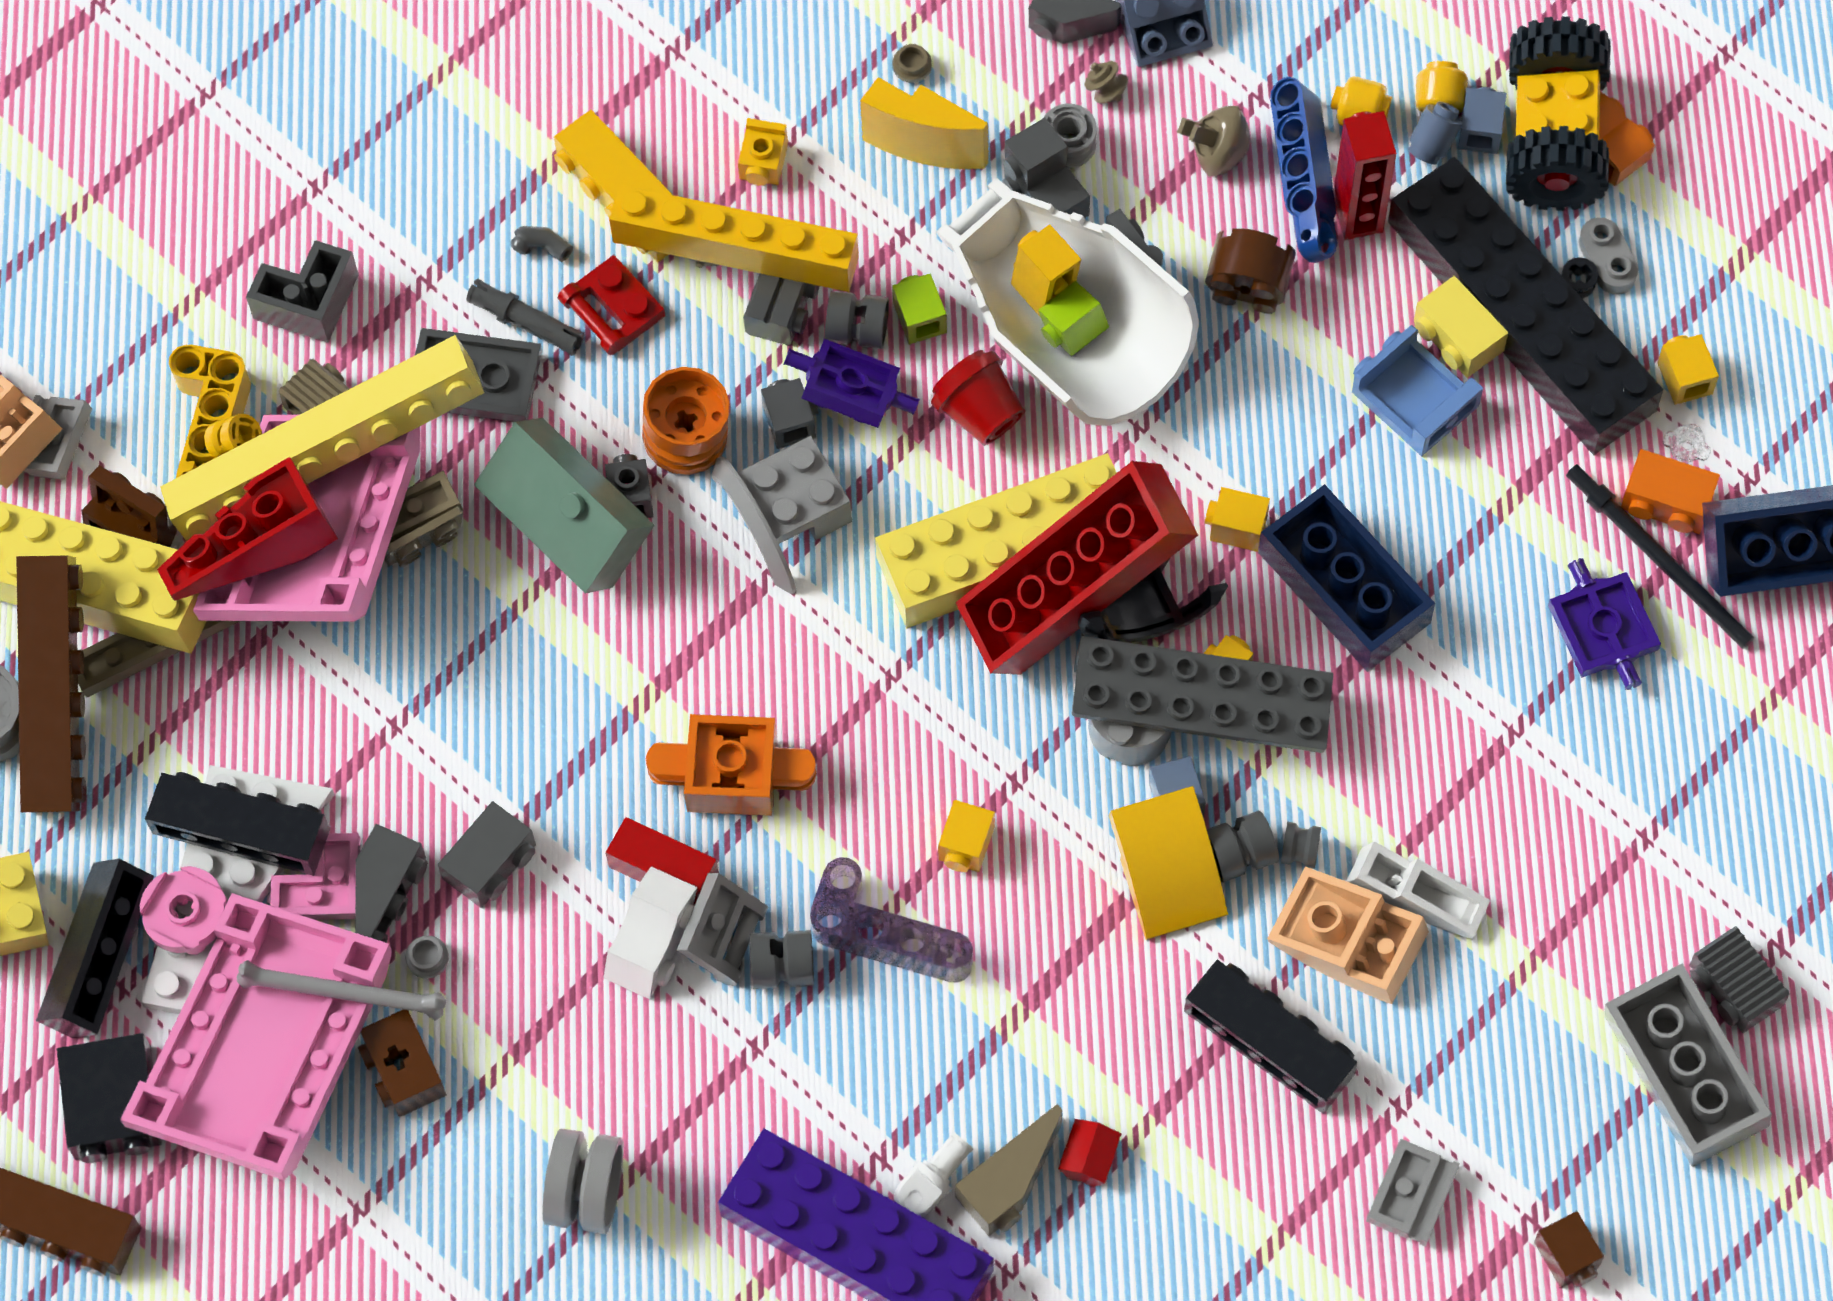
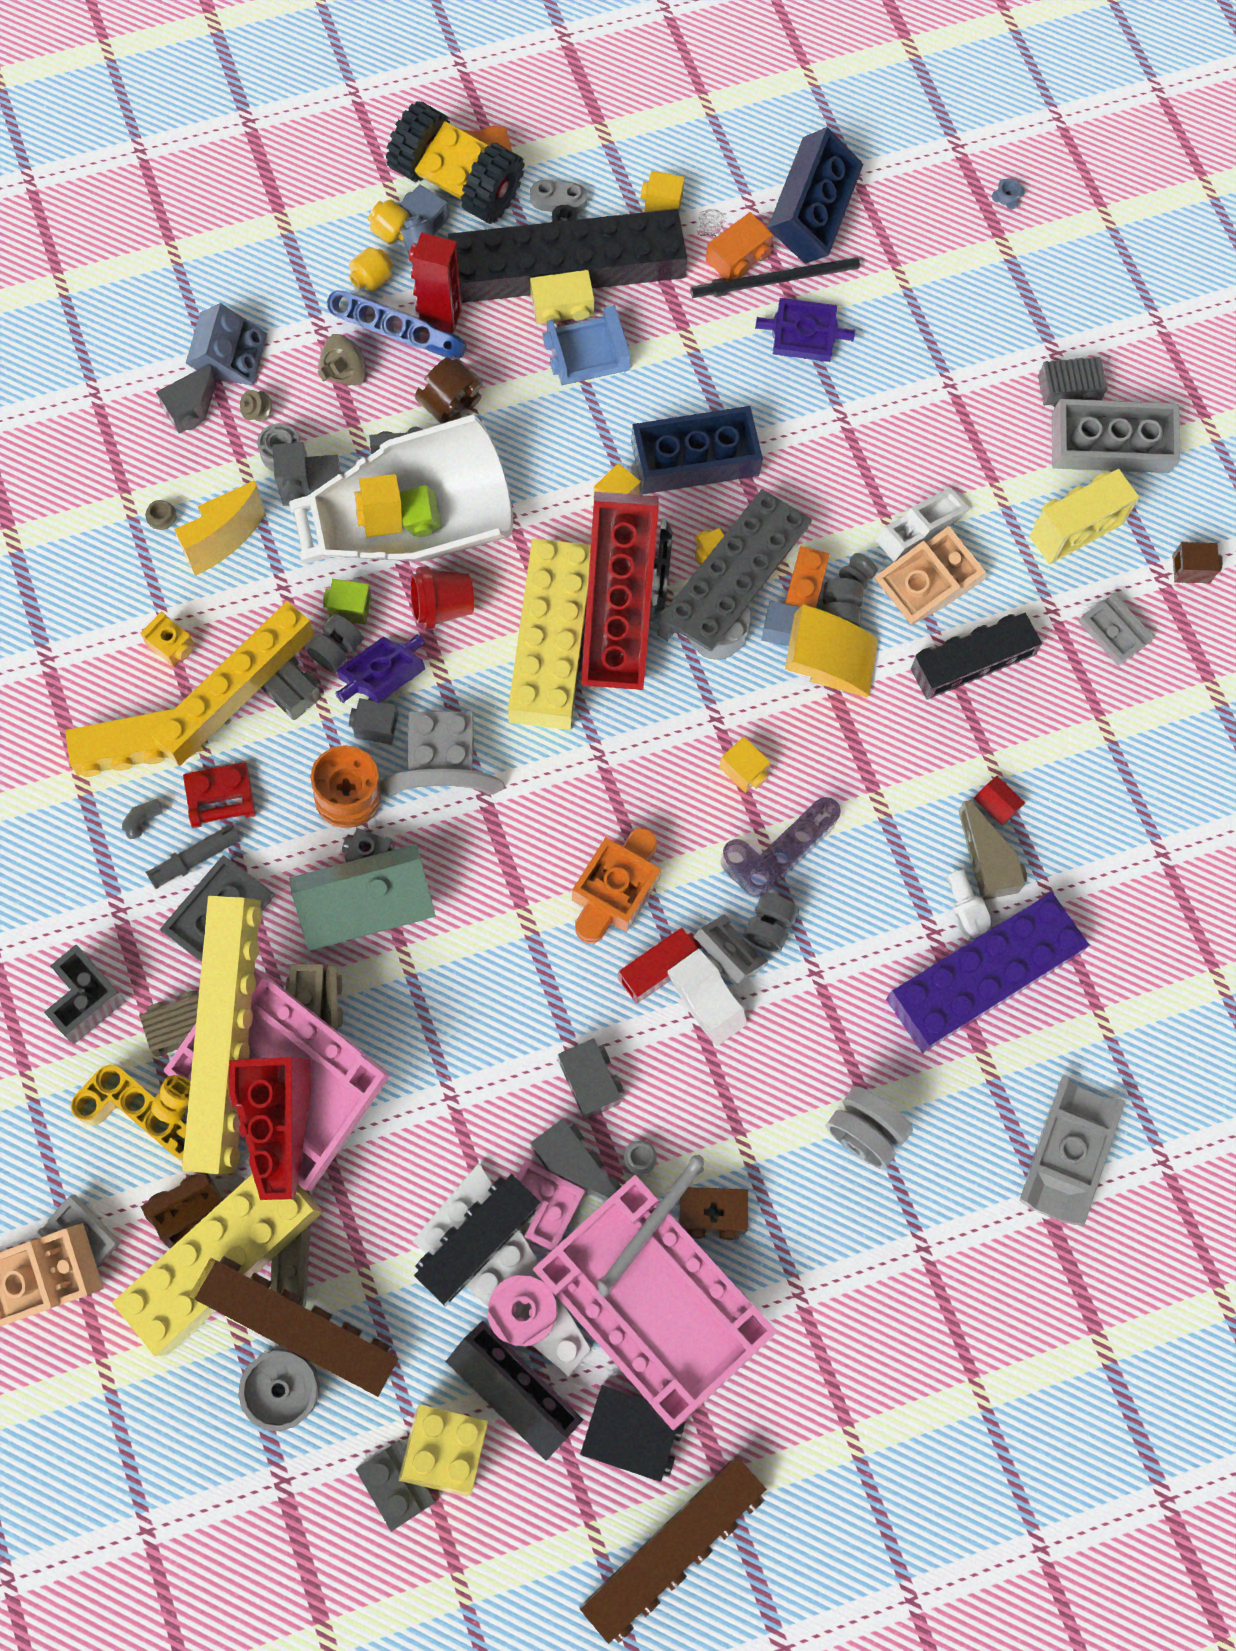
camera: 70 degrees left, 5 degrees up
(1246, 788) = (807, 577): none -> orange brick
(1538, 1071) = (1083, 515): none -> light yellow brick

